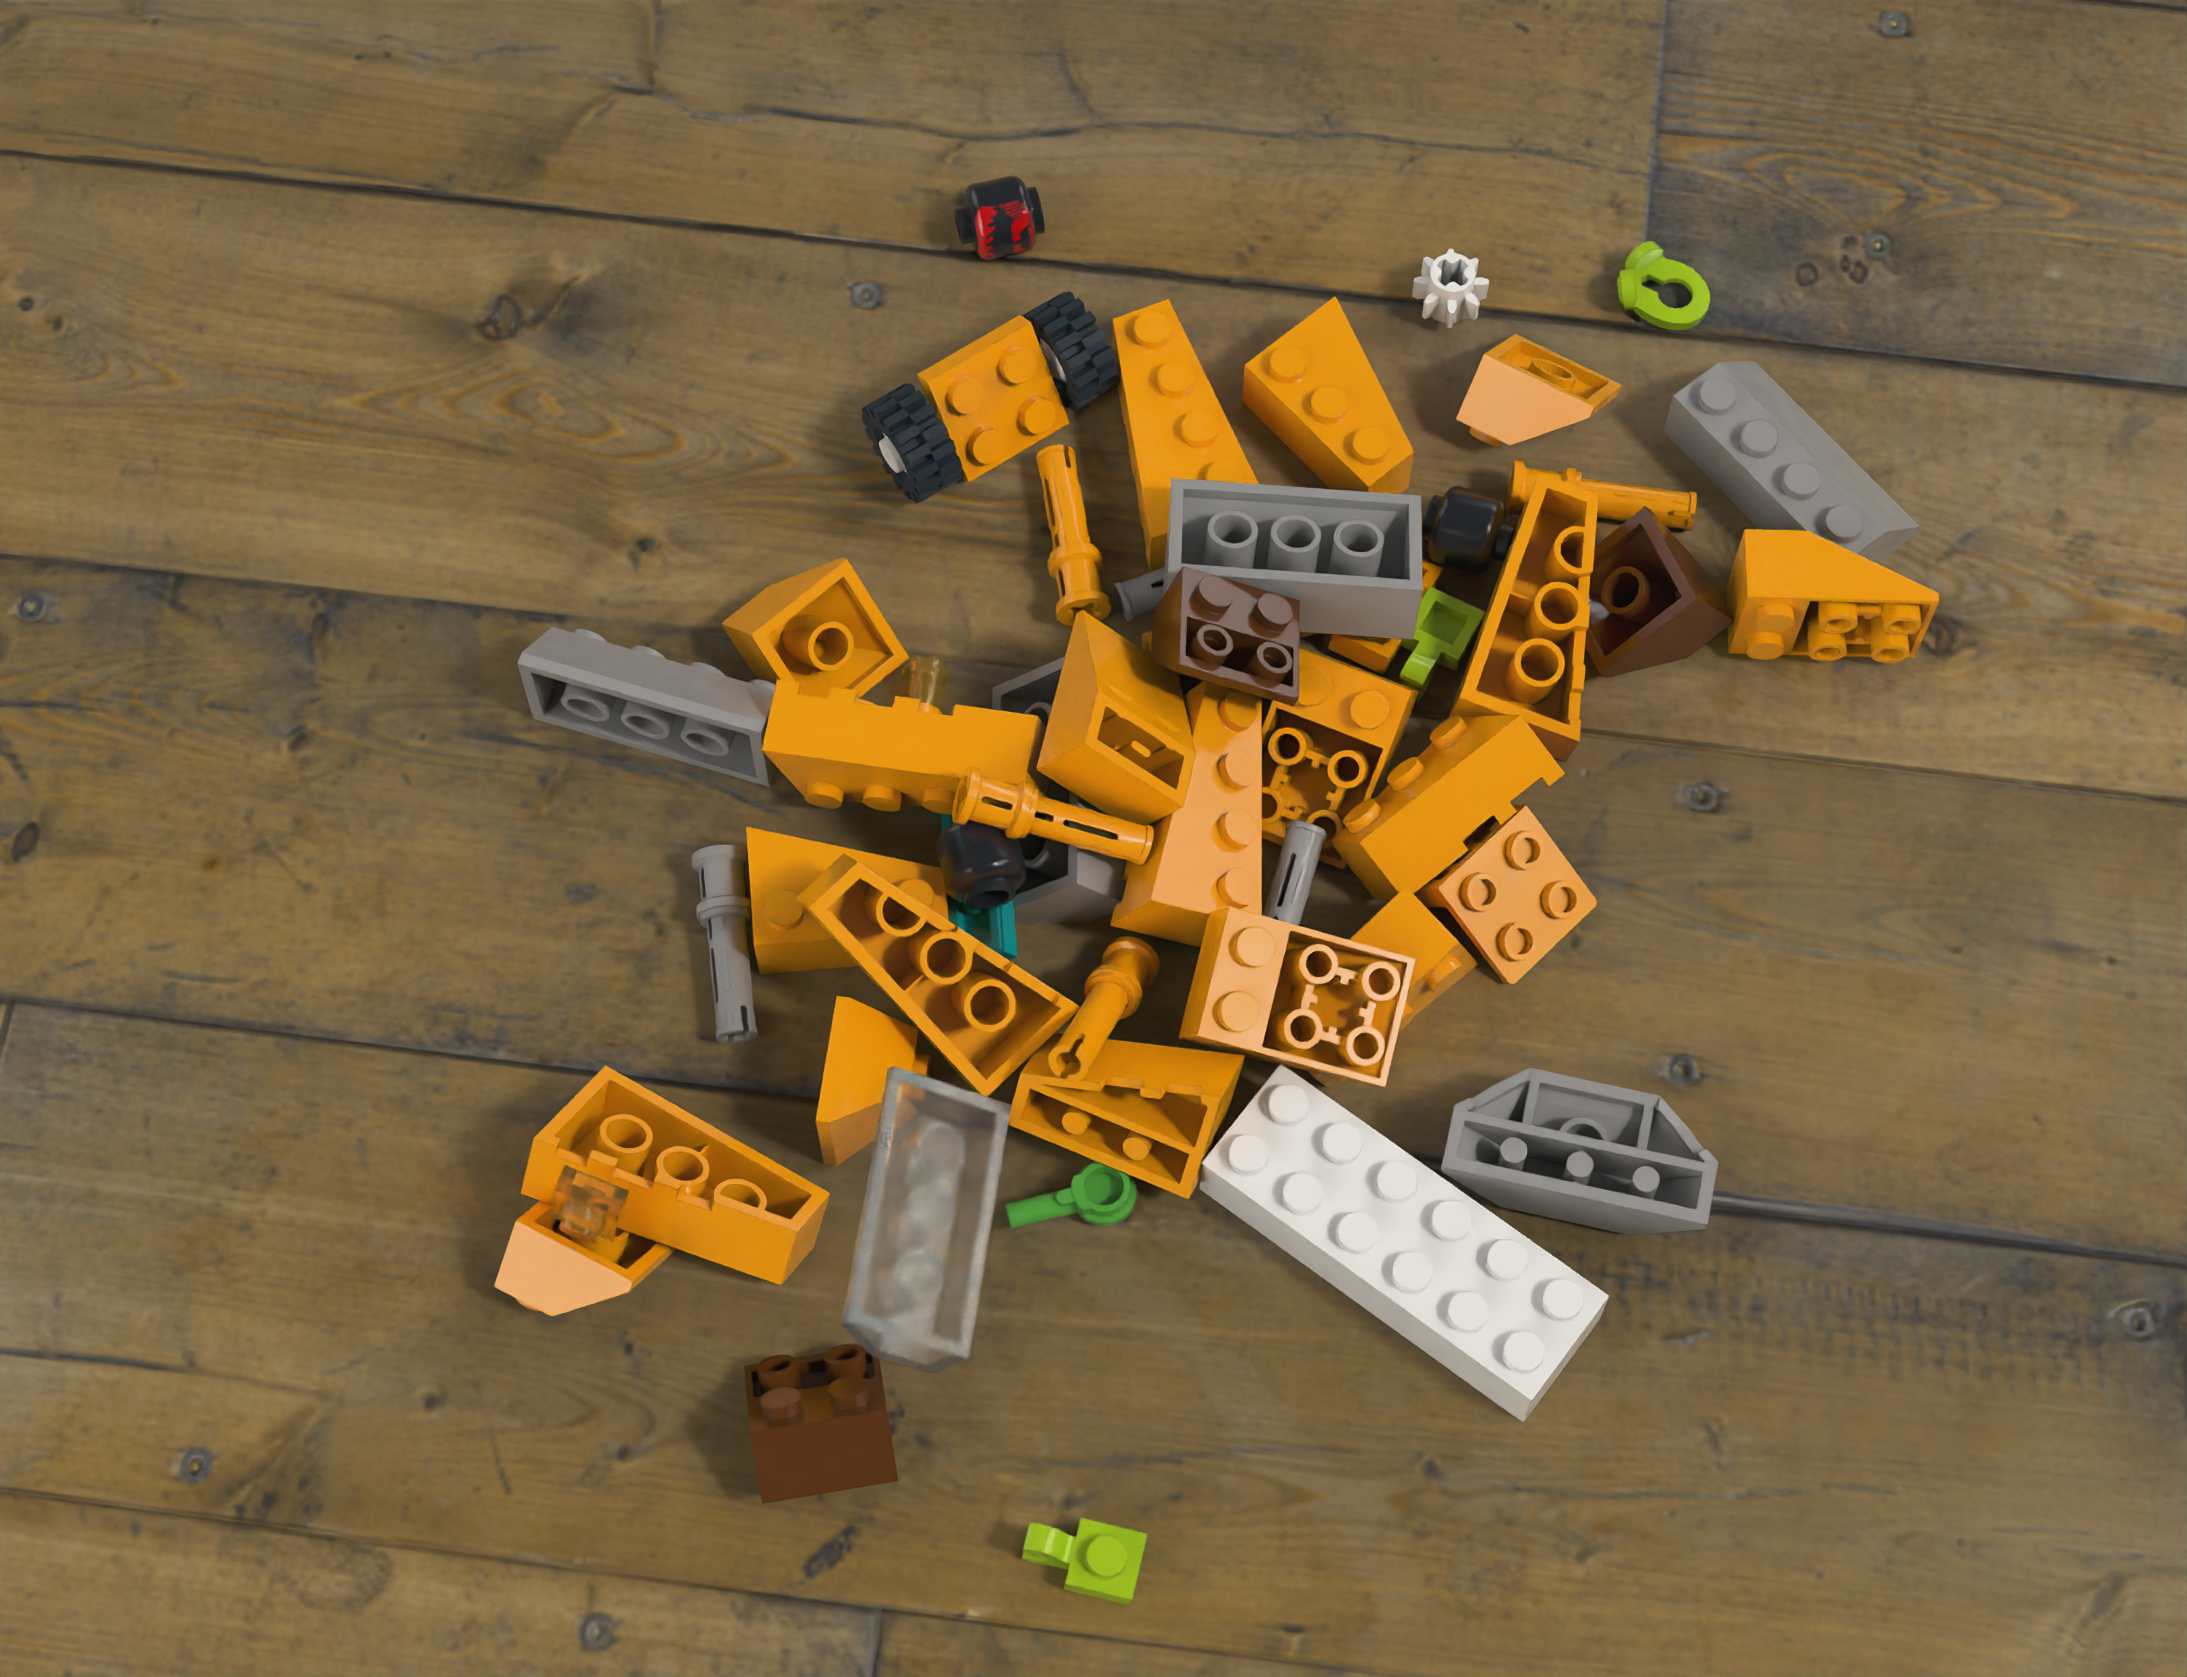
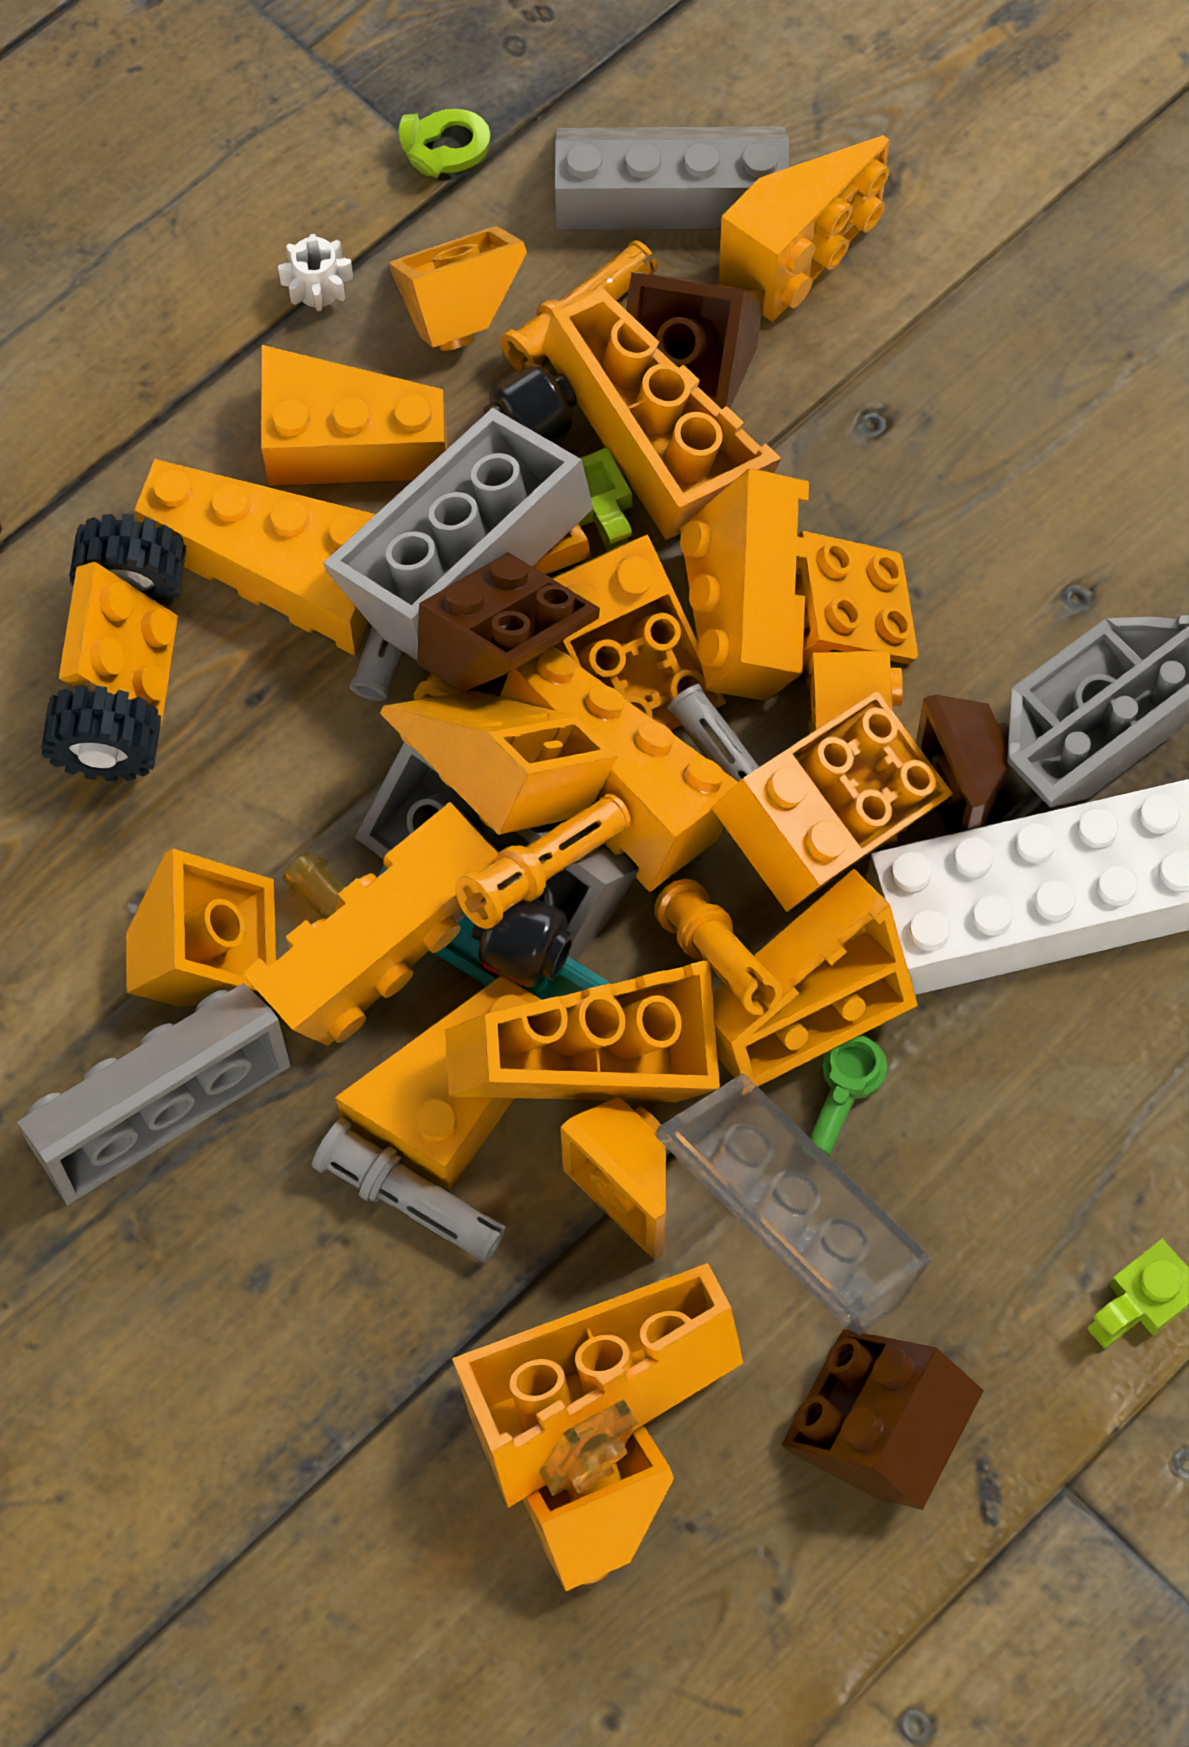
camera: 50 degrees left, 0 degrees up
(1074, 559) = (300, 695): light orange pin -> none
(1431, 1075) = (969, 756): none -> reddish brown slope

